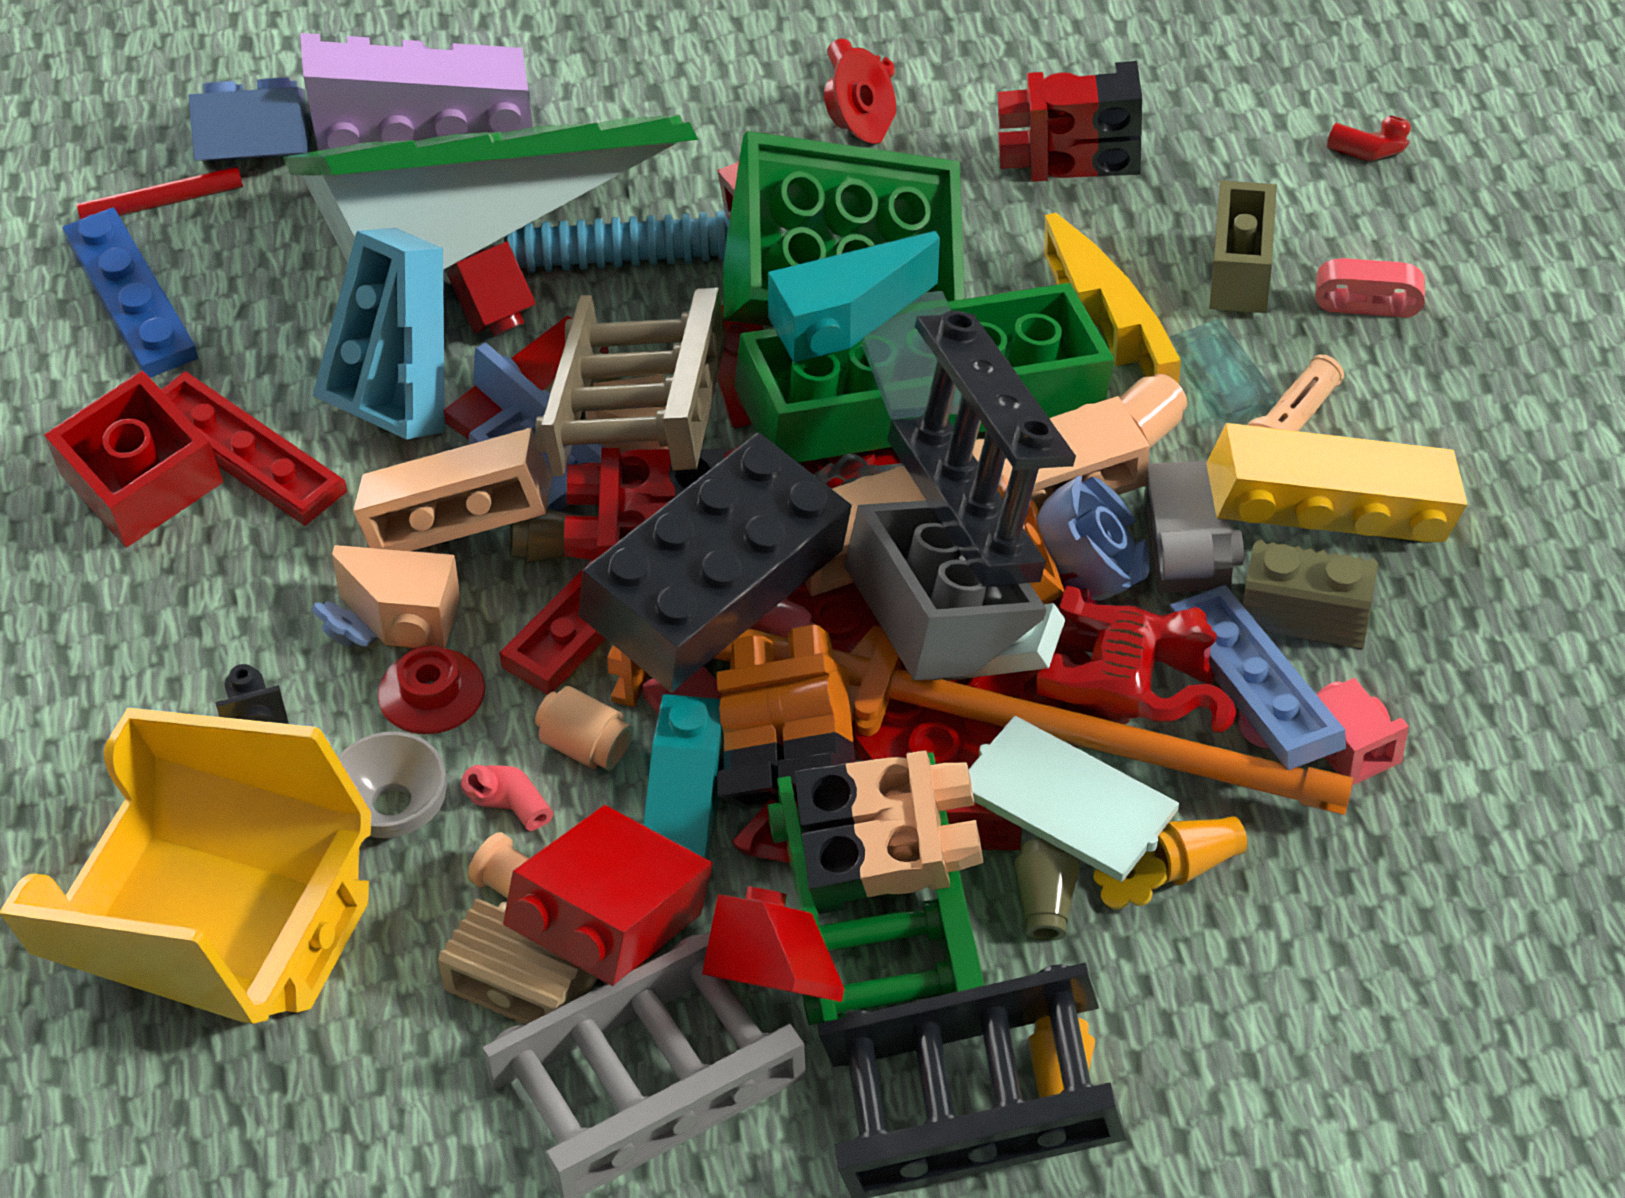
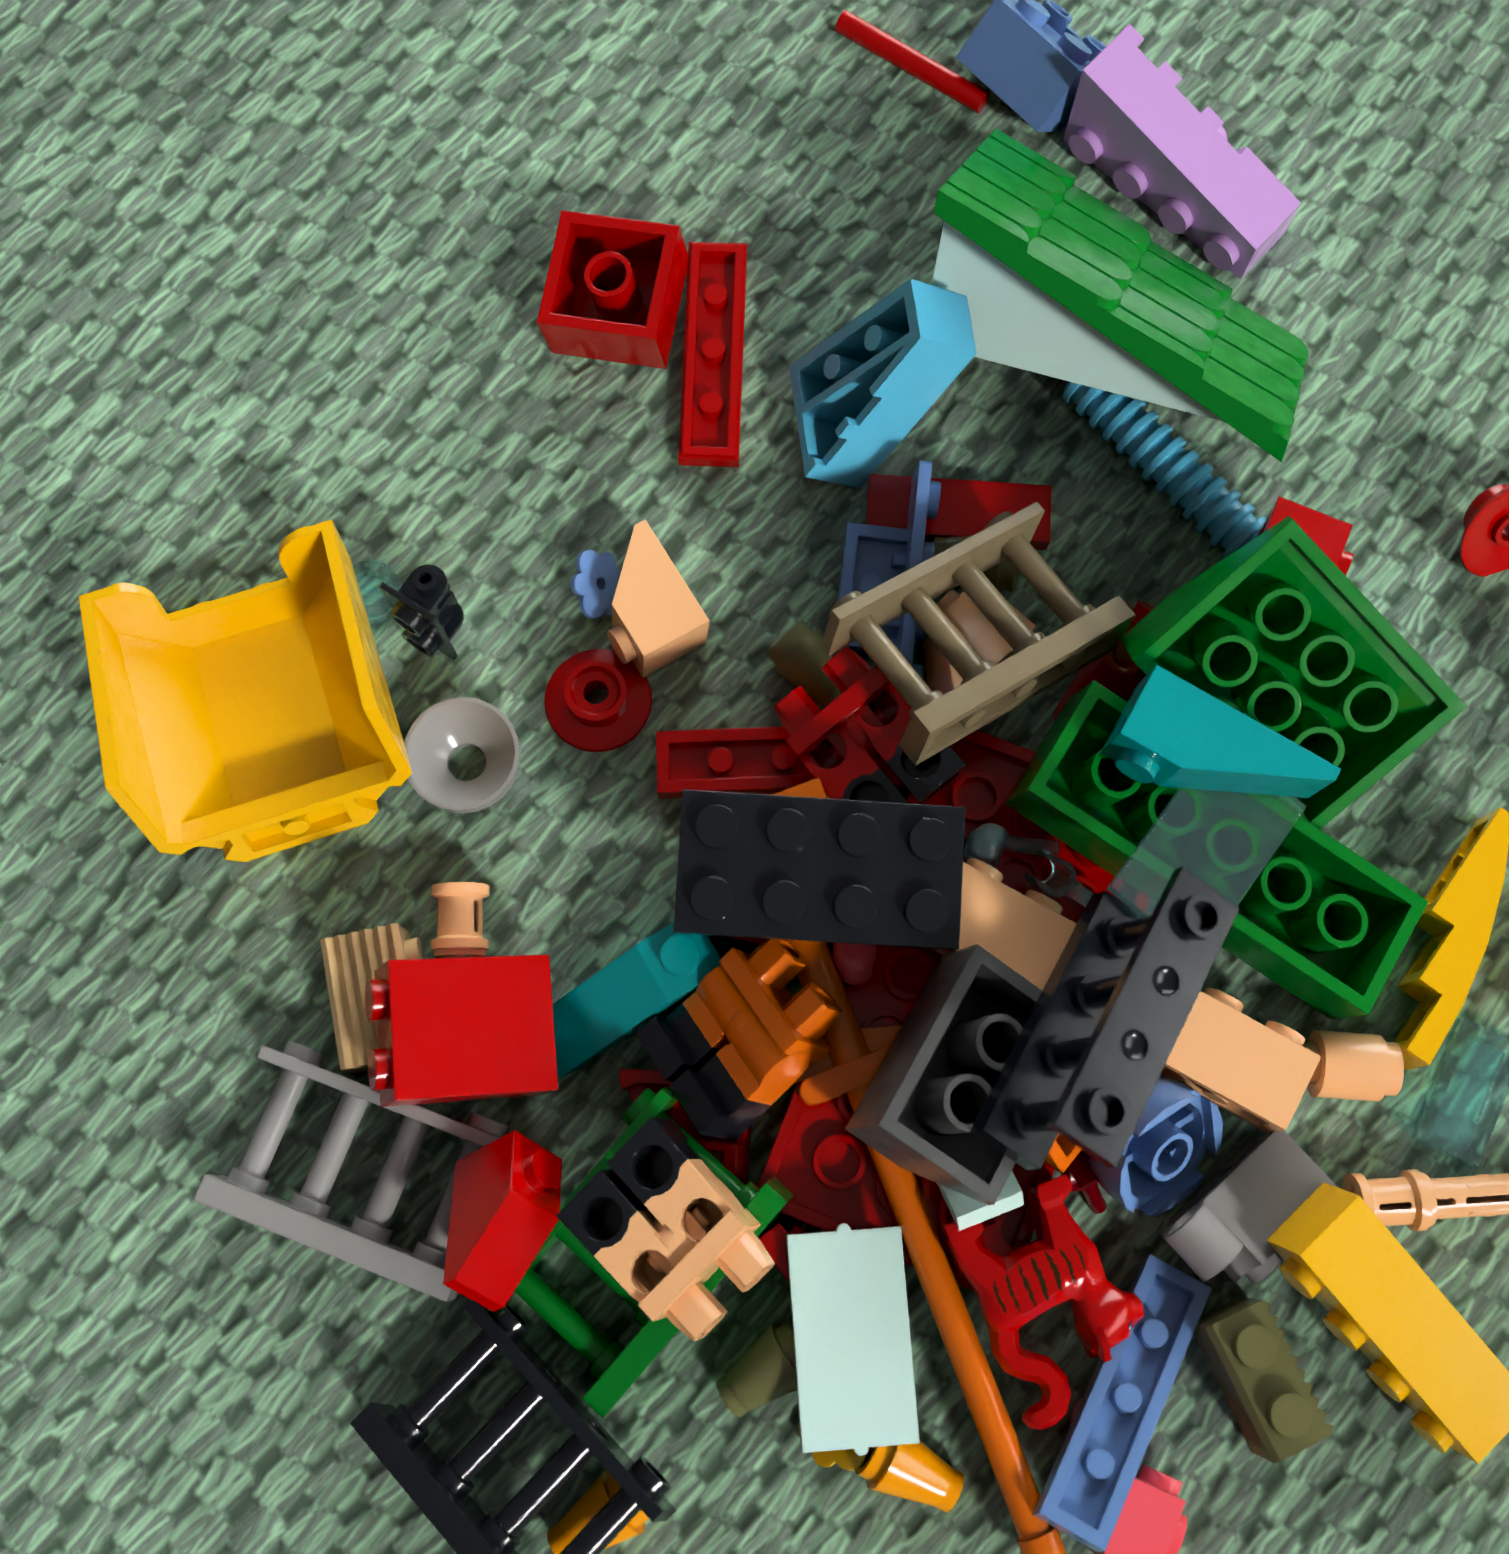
camera: 50 degrees right, 25 degrees up
(130, 293) = (793, 130): blue plate -> none
(454, 493) = (764, 564): light nougat brick -> none
(492, 290) = (1015, 411): red brick -> none
(507, 789) = (542, 843): coral arm -> none
(583, 728) = (638, 857): light nougat brick -> none

